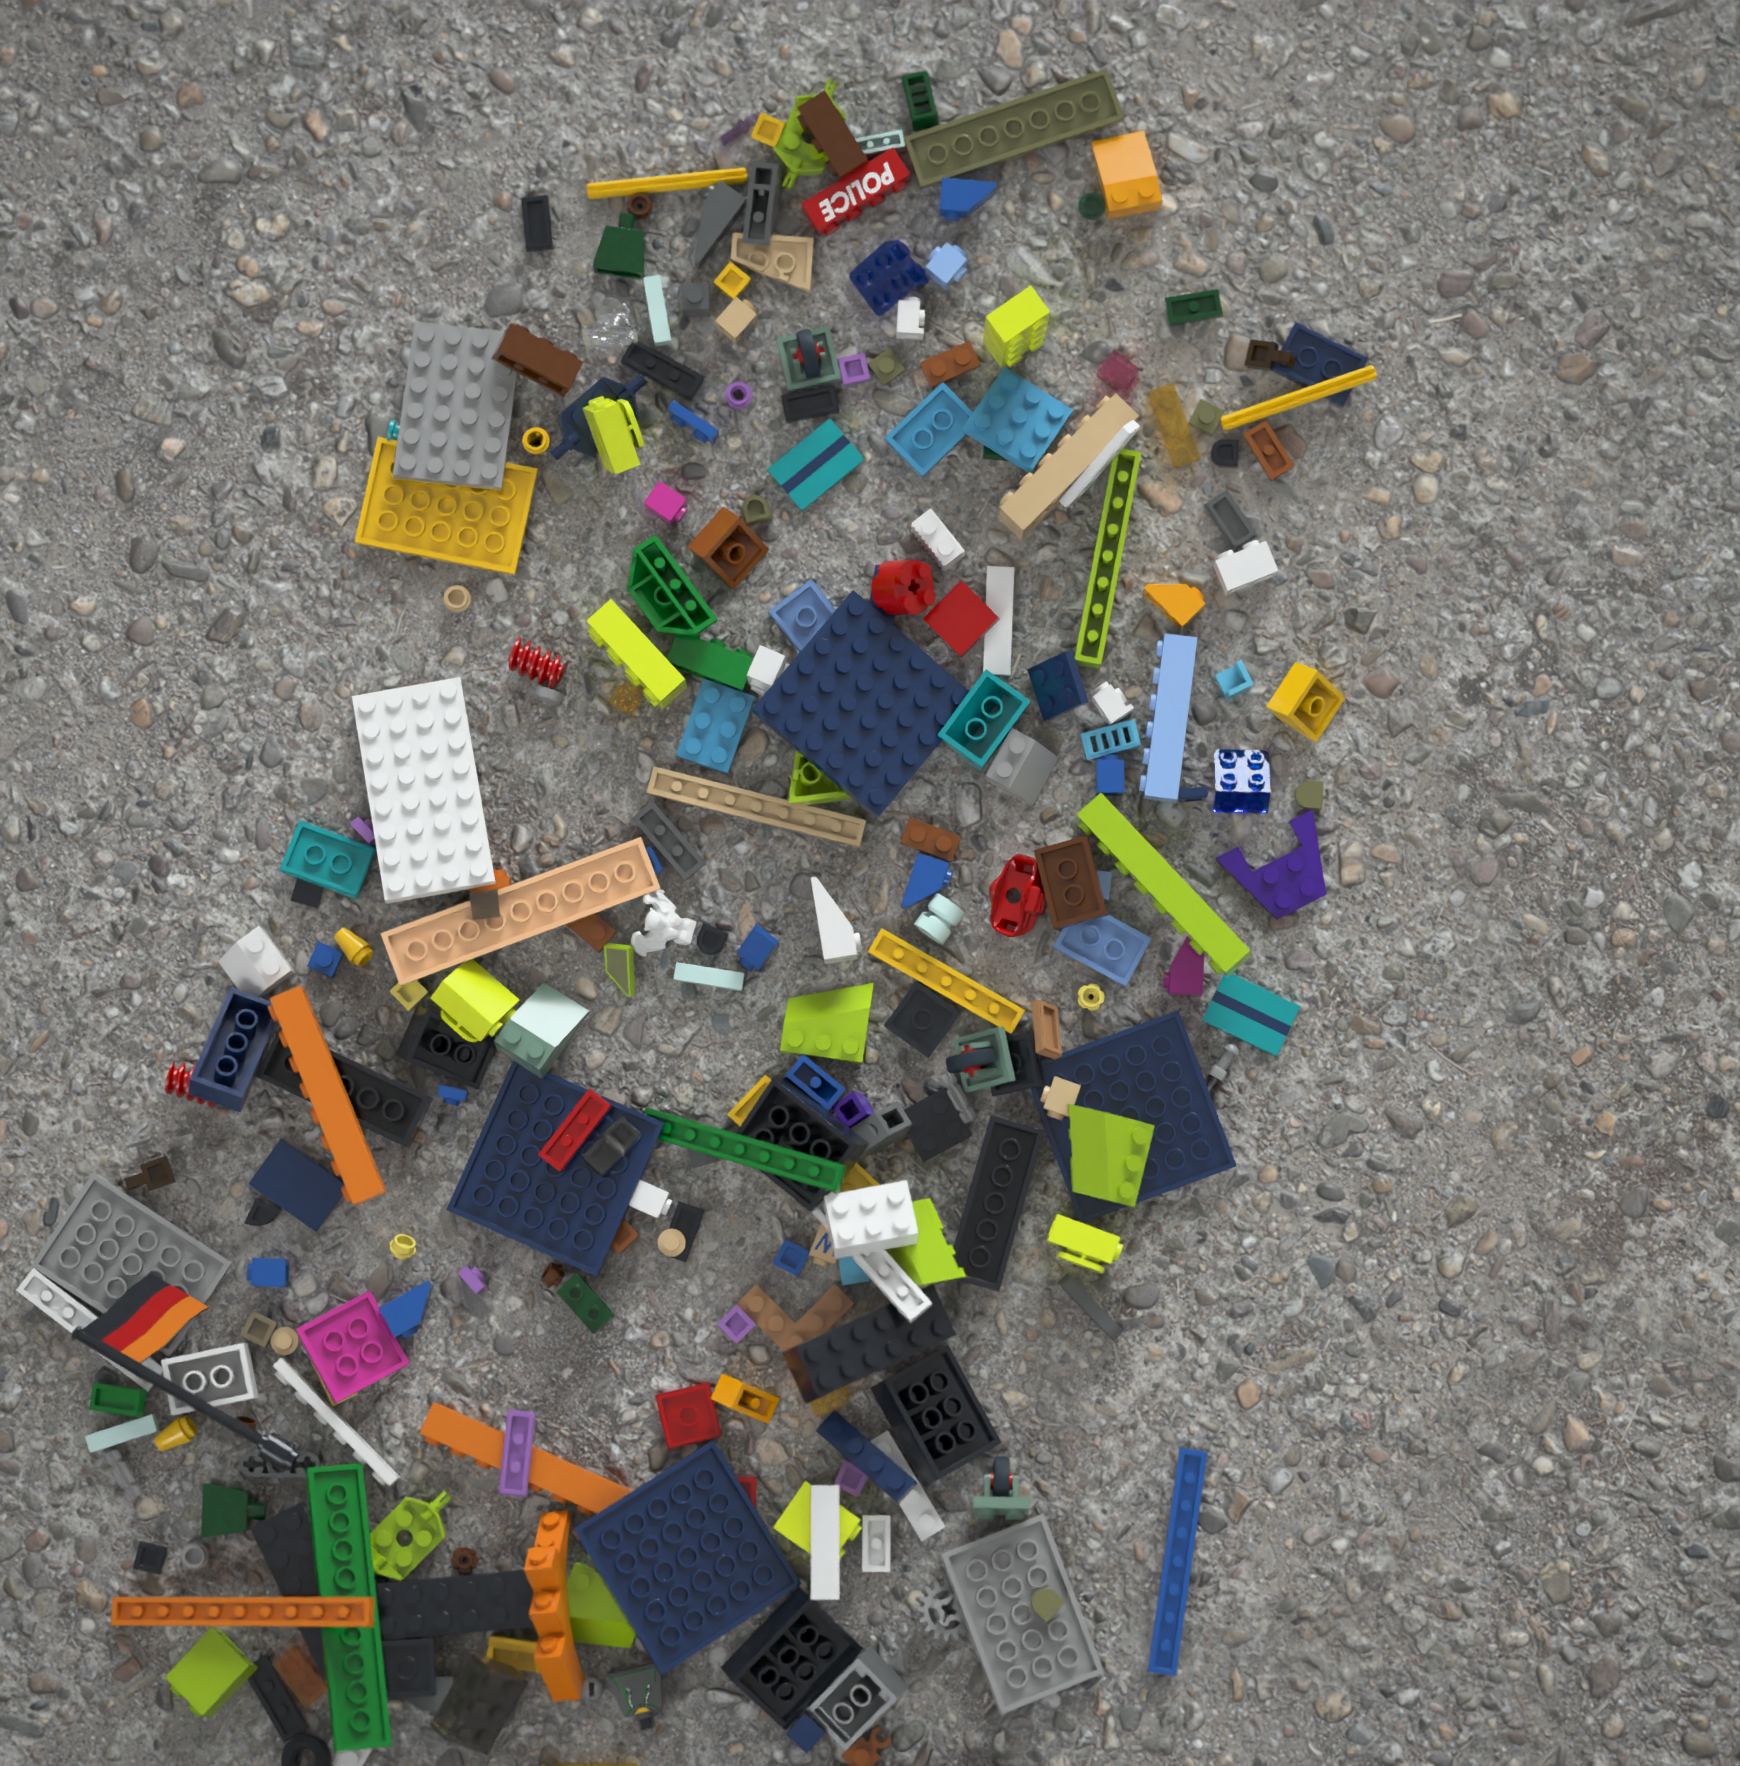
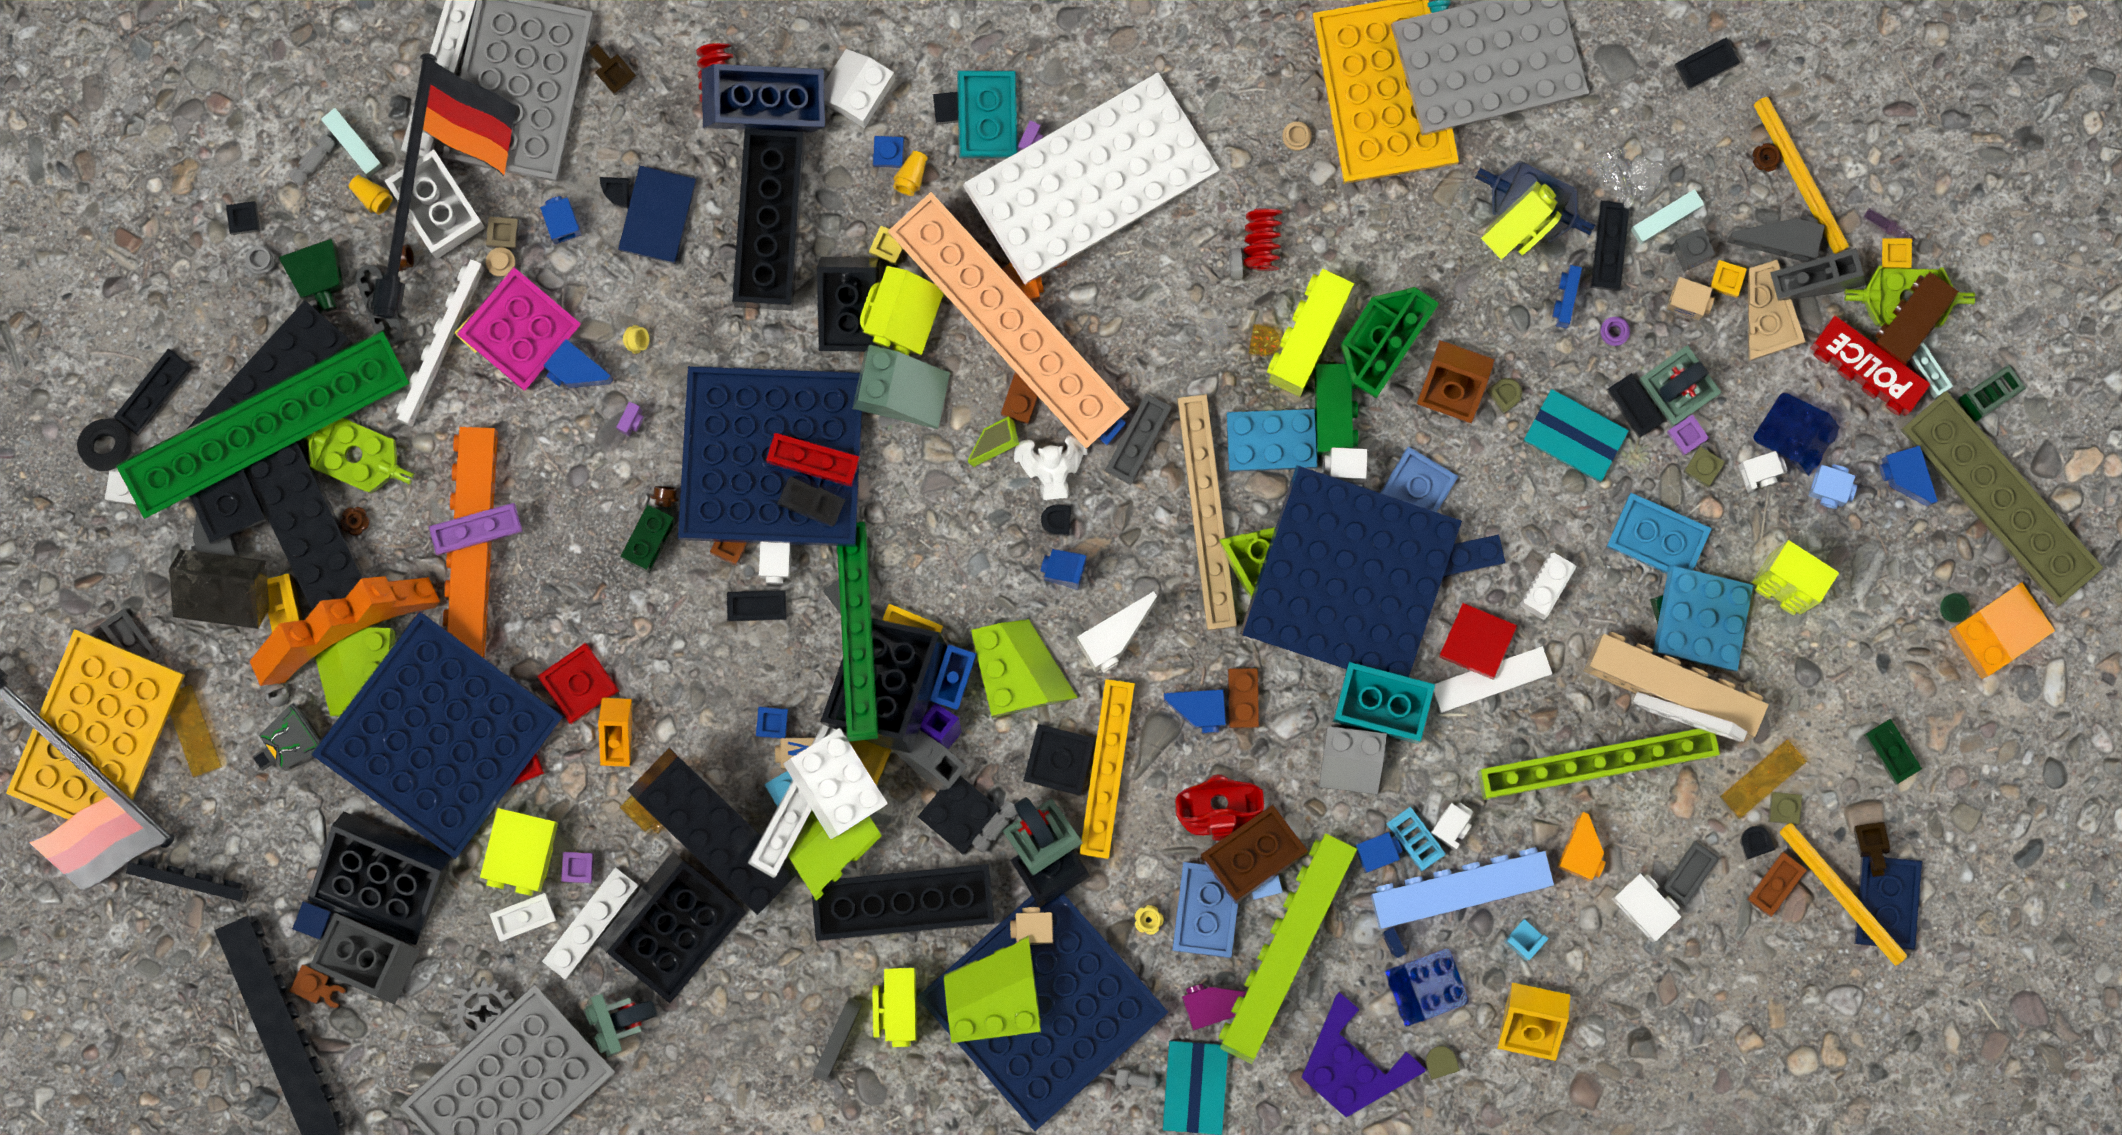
camera: 70 degrees right, 0 degrees up
(117, 1399) = (382, 125): green tile -> none
(210, 1673) = (152, 319): lime brick -> none
(243, 1611) = (220, 325): orange plate -> none
(300, 1676) = (182, 406): clear orange plate -> none
(328, 1096) = (751, 205): orange brick -> none
(452, 1095) = (802, 328): blue plate -> none
(484, 904) = (999, 281): clear smoke tile -> none
(536, 435) = (1487, 143): yellow cone -> none
(537, 359) = (1568, 117): reddish brown brick -> none
(621, 250) = (1713, 157): dark green torso -> none
(666, 504) = (1475, 303): dark pink brick -> none
(671, 1242) = (740, 598): tan plate -> none
(709, 976) = (1019, 532): light aqua piece -> none
(736, 1324) = (685, 695): medium lavender plate -> none
(782, 1328) = (699, 742): medium nougat plate -> none
(824, 1542) = (501, 864): white tile -> none
(866, 1457) = (603, 873): dark blue plate -> none
(903, 587) = (1485, 570): red brick -> none
(939, 918) = (1166, 737): light aqua wheel -> none
(950, 364) = (1733, 529): dark orange plate -> none
(1046, 1029) = (1097, 887): medium nougat tile -> none
(1046, 1603) = (526, 1108): olive tile -> none
(1058, 685) = (1448, 764): dark blue plate -> none
(1119, 373) = (1793, 702): clear pink brick -> none

